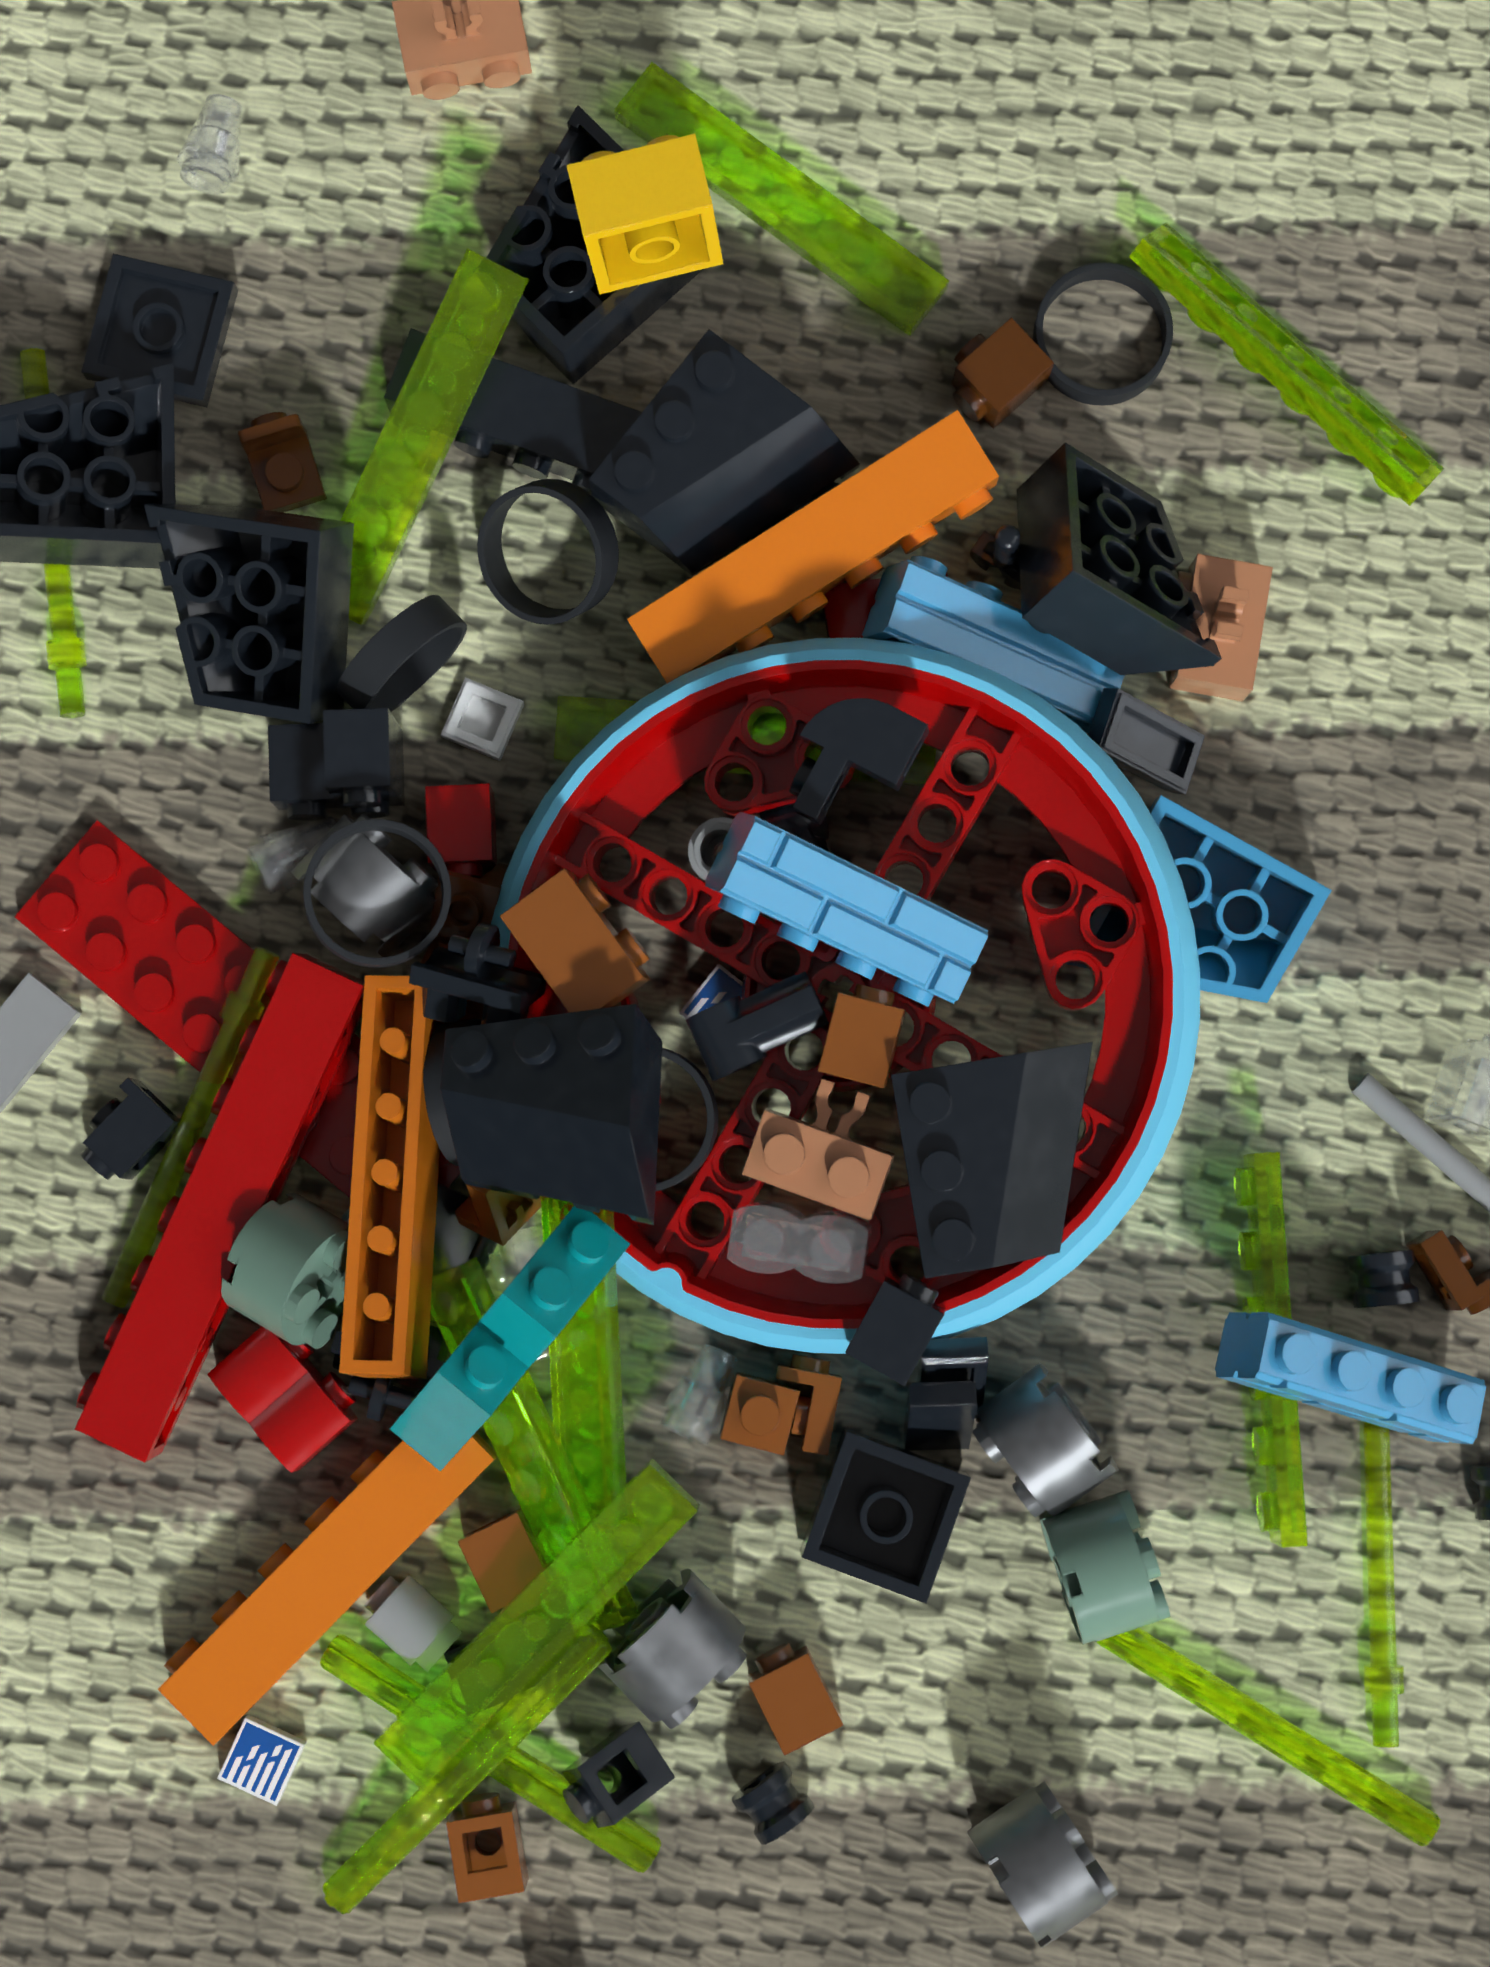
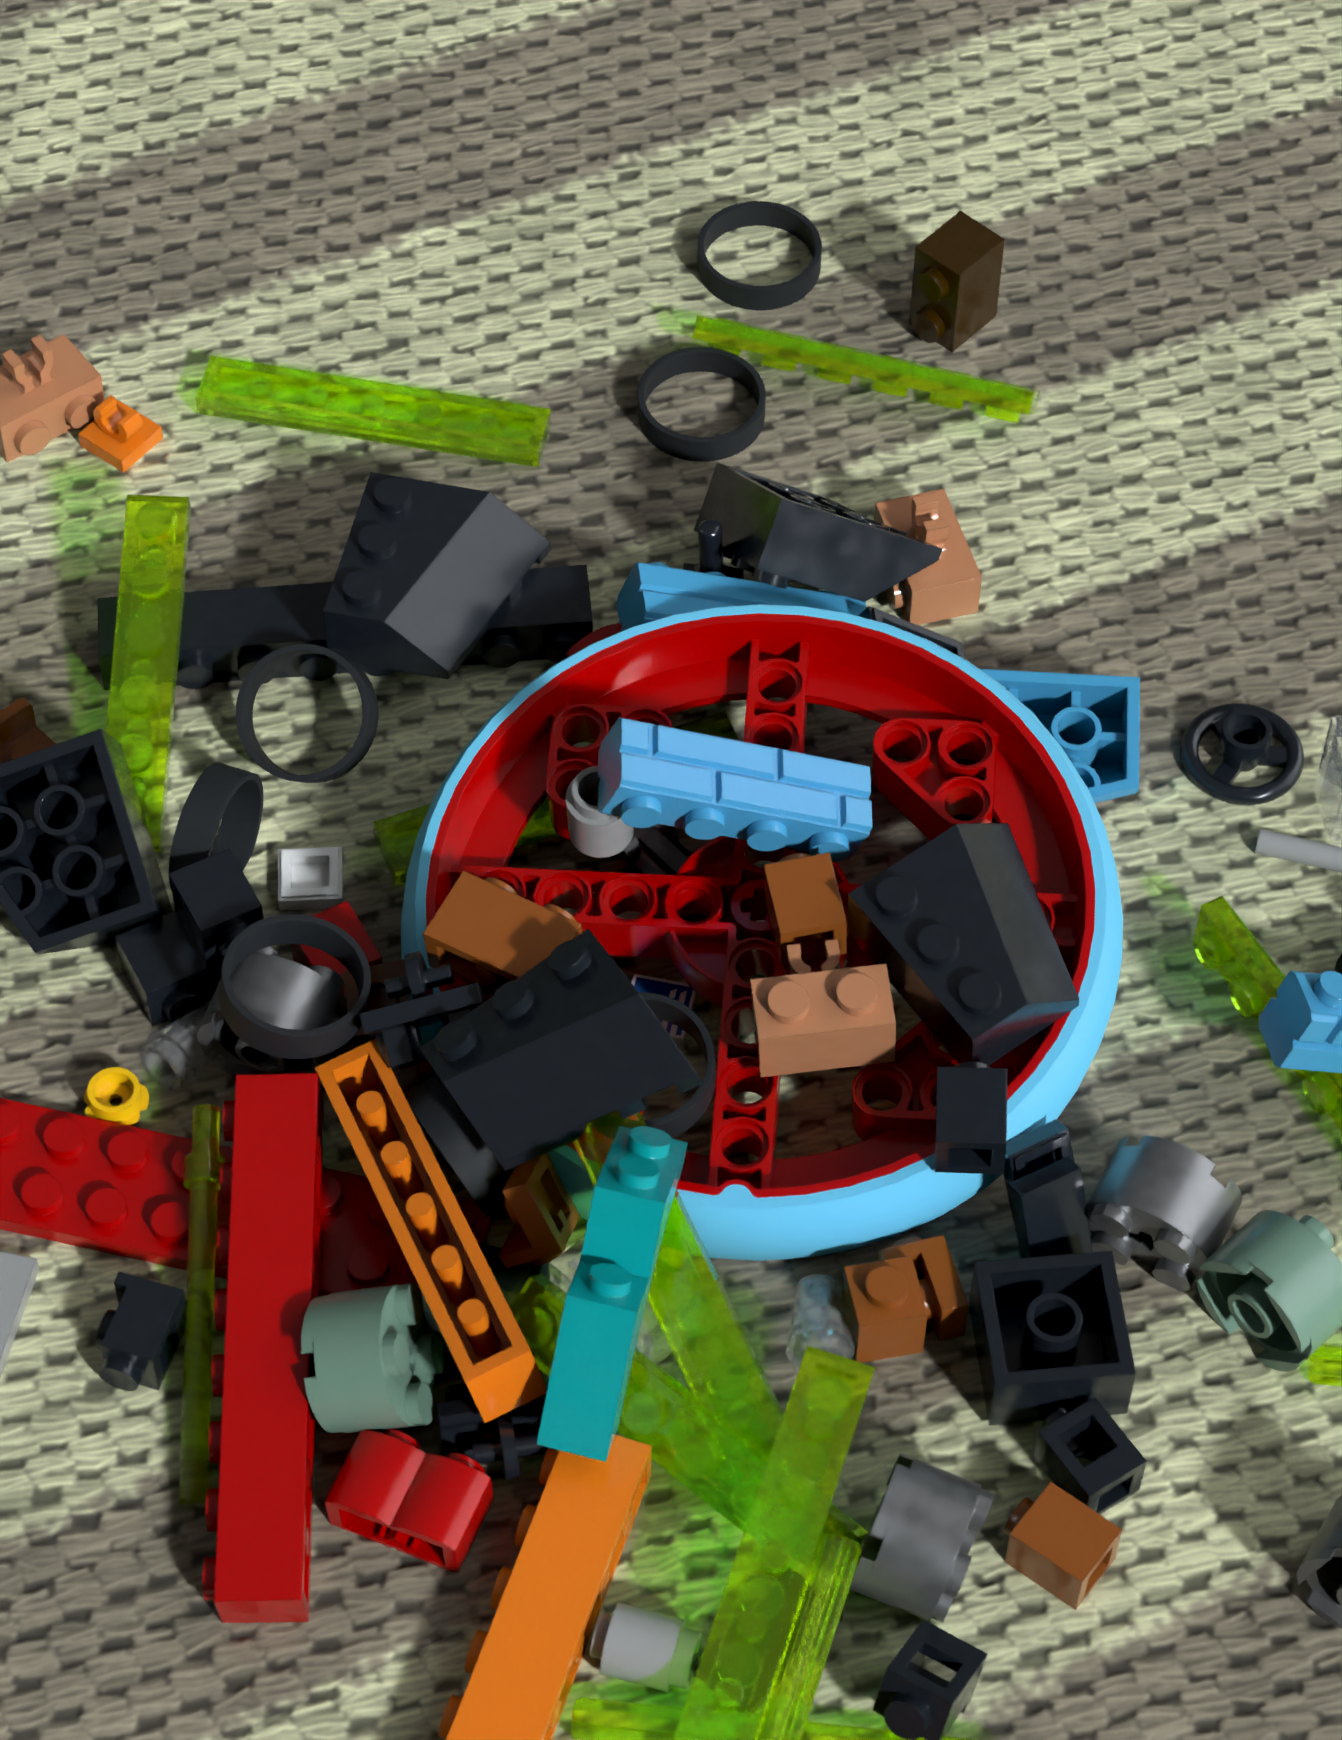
camera: 25 degrees left, 30 degrees down
(197, 869) = (111, 1084): none -> yellow plate
(502, 1558) = (701, 1543): dark orange brick -> none
(529, 114) = (119, 434): none -> orange tile
(546, 245) = (248, 488): black wedge -> none
(645, 212) = (274, 410): yellow brick -> none
(742, 1030) = (693, 953): black piece -> none
(773, 1803) = (1095, 1650): black wheel -> none
(818, 549) = (550, 600): orange brick -> none
(820, 1246) = (855, 1089): clear brick -> none
(860, 736) = (676, 675): black brick -> none
(864, 1655) = (1094, 1435): none -> black brick
(998, 373) = (631, 455): reddish brown brick -> none
(1273, 111) = (759, 214): none -> black tyre
(1421, 314) = (955, 281): none -> dark brown brick
(1422, 974) = (1246, 739): none -> black piece

